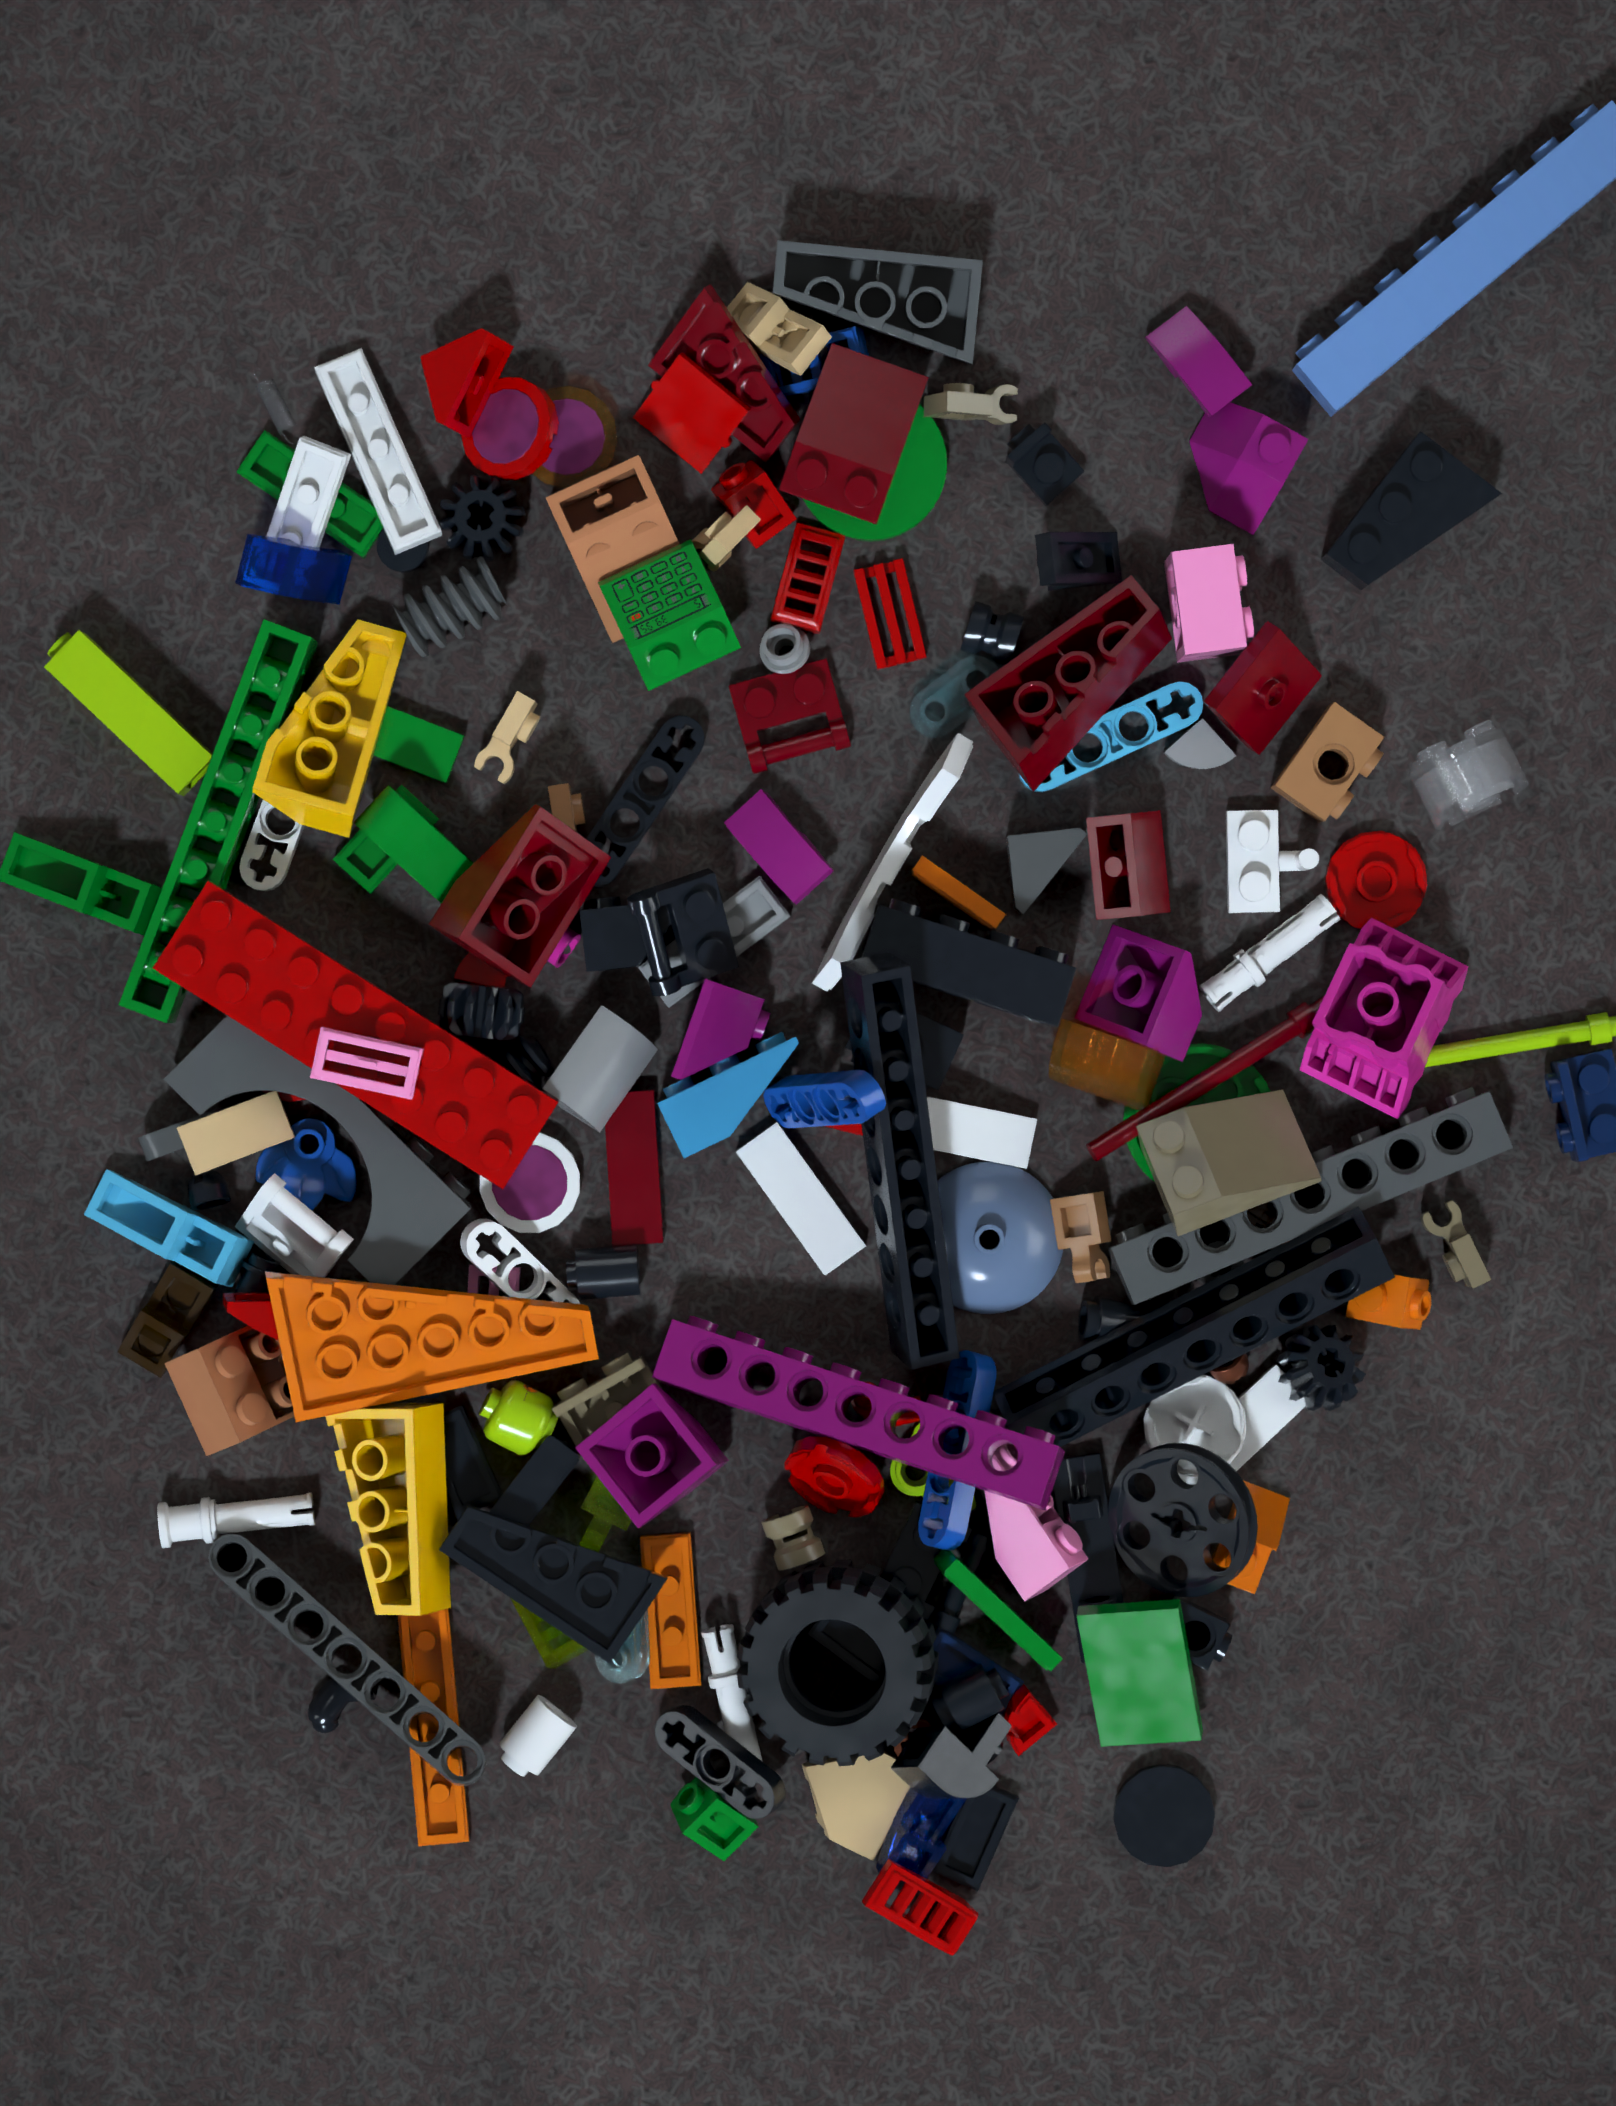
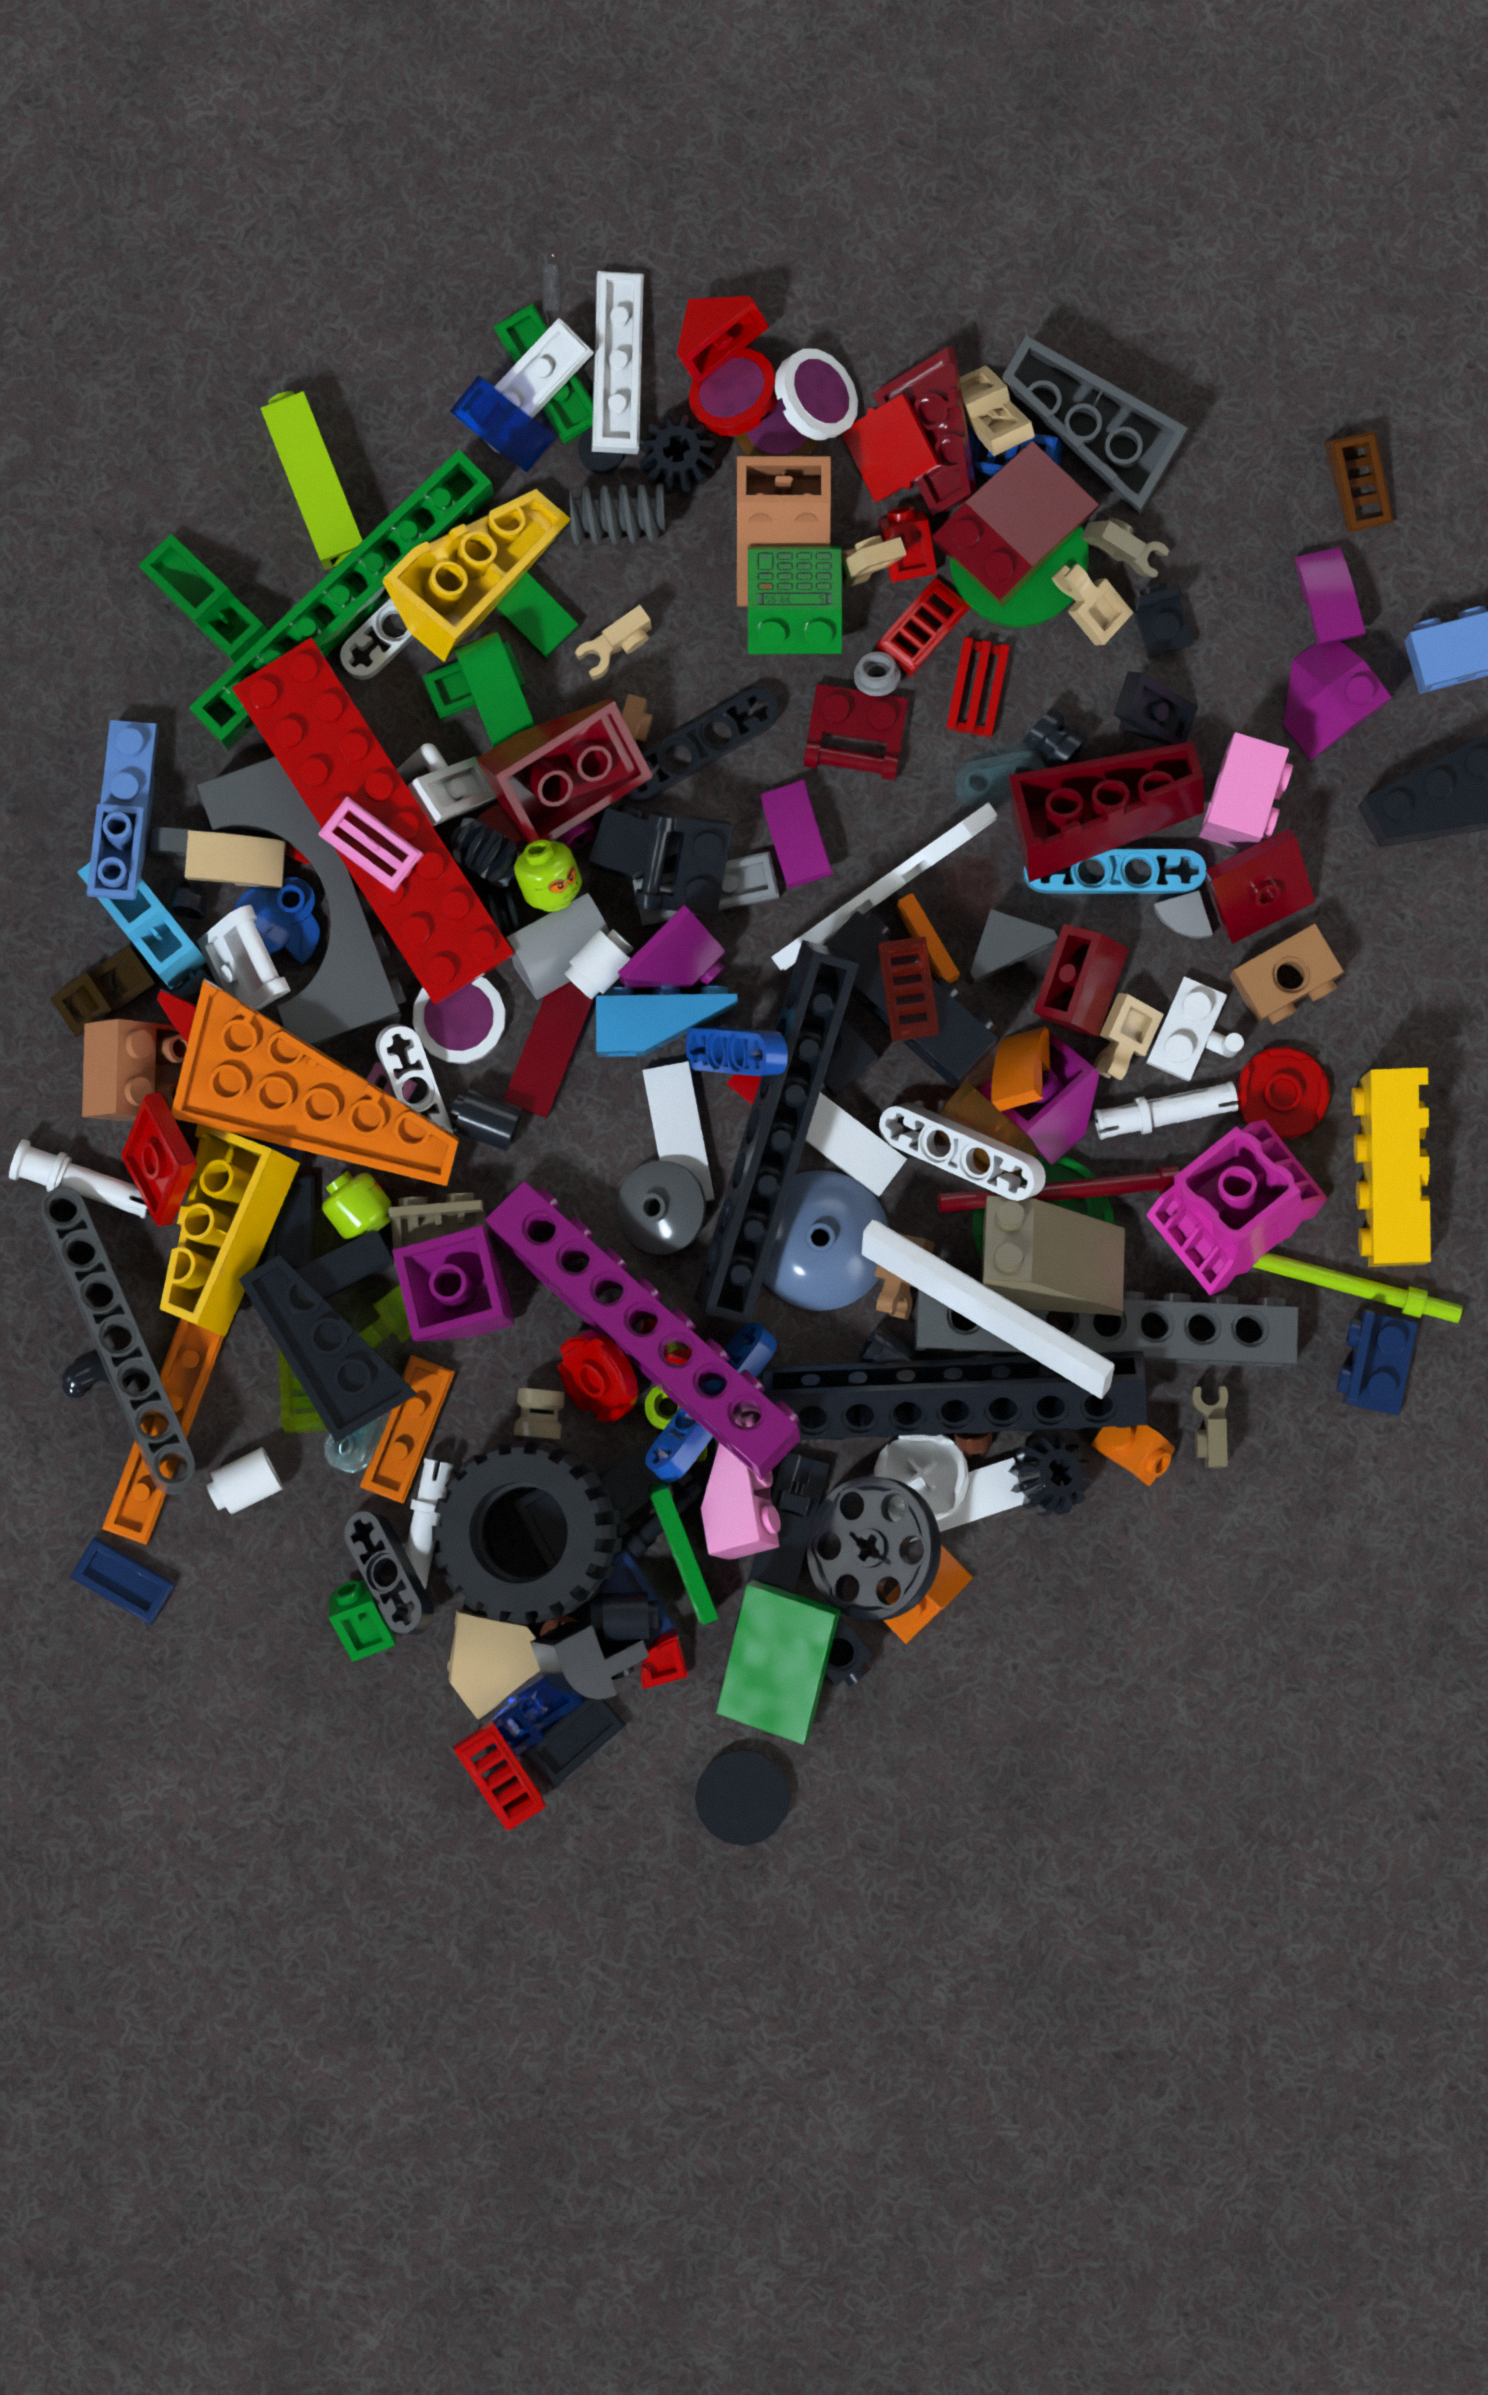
camera: 25 degrees right, 5 degrees down
(102, 1135) = (124, 811): none -> medium blue slope
(304, 1466) = (159, 1159): none -> red plate
(414, 963) = (446, 789): none -> white plate
(462, 1886) = (123, 1580): none -> dark blue tile
(555, 1008) = (548, 875): none -> lime head
(593, 393) = (816, 394): none -> tile
(646, 1070) = (598, 963): none -> white brick
(832, 1264) = (680, 1211): none -> dark grey dish
(943, 926) = (903, 948): none -> clear red slope
(972, 478) = (1097, 605): none -> tan plate
(1090, 1096) = (960, 1157): none -> white beam
(1108, 981) = (1020, 1069): none -> orange slope
(1160, 239) = (1339, 469): none -> reddish brown slope
(1189, 1239) = (987, 1309): none -> white tile
(1196, 888) = (1130, 1031): none -> tan plate
(1466, 776) = (1399, 1033): clear brick -> none
(1520, 909) = (1393, 1167): none -> yellow wedge

